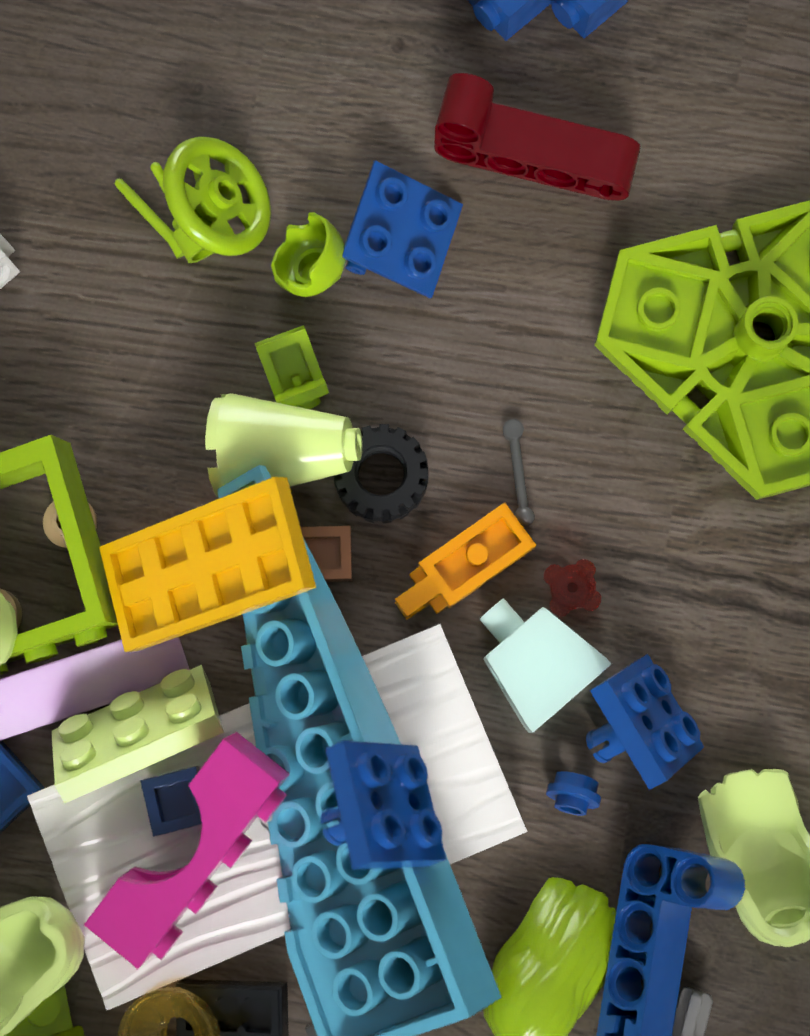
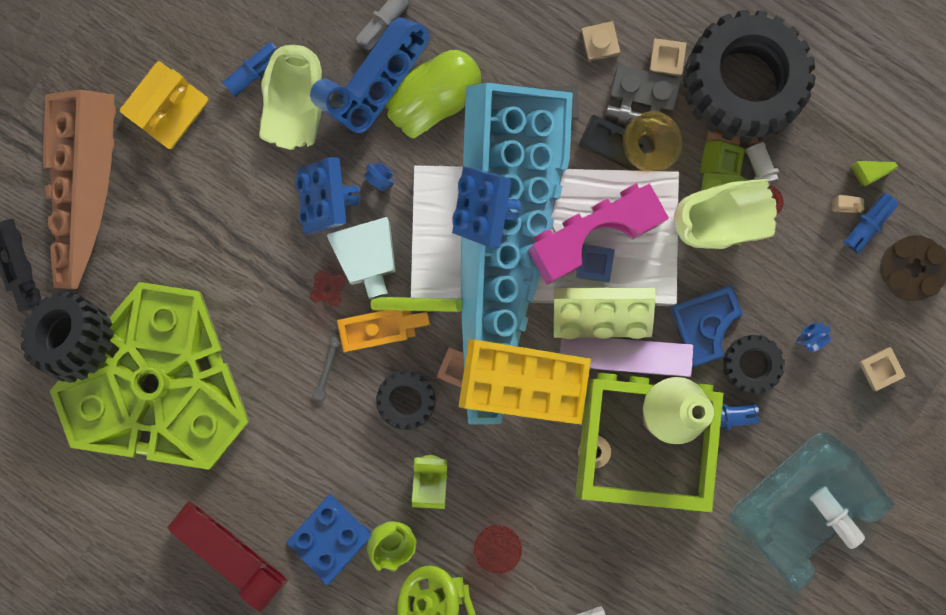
camera: 155 degrees left, 5 degrees up
(153, 322) = (497, 549): none -> clear red plate
(282, 437) = (450, 437): yellowish green cone -> none
(424, 617) = (417, 304): none -> lime bar

